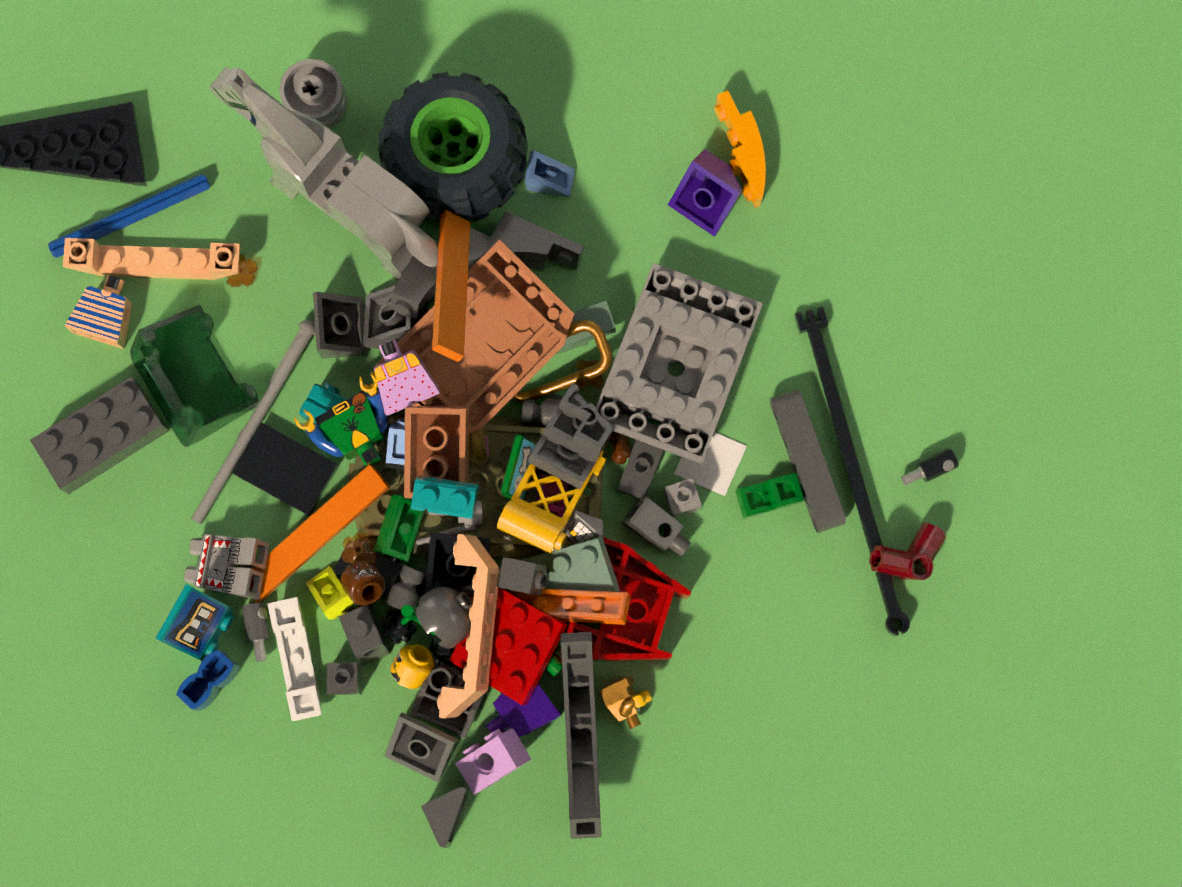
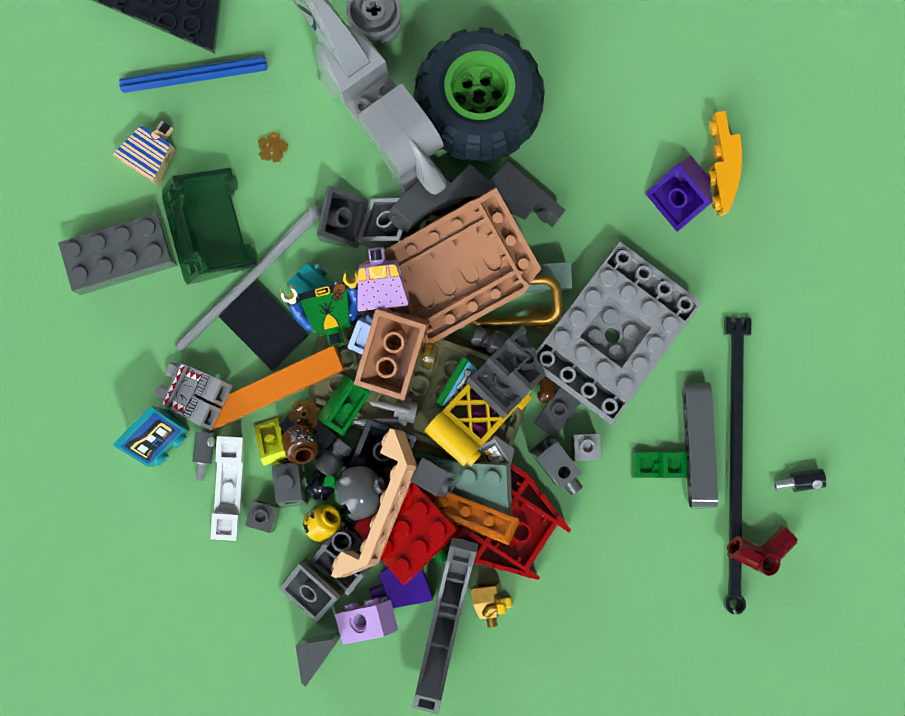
camera: 15 degrees right, 5 degrees up
(152, 262) = (201, 119): light nougat slope -> none
(203, 687) = (146, 489): blue brick -> none
(445, 496) = (387, 395): teal brick -> none
(451, 286) = (443, 217): orange tile -> none
(548, 175) = (552, 140): medium blue slope -> none
(717, 467) = (625, 427): white sticker -> none

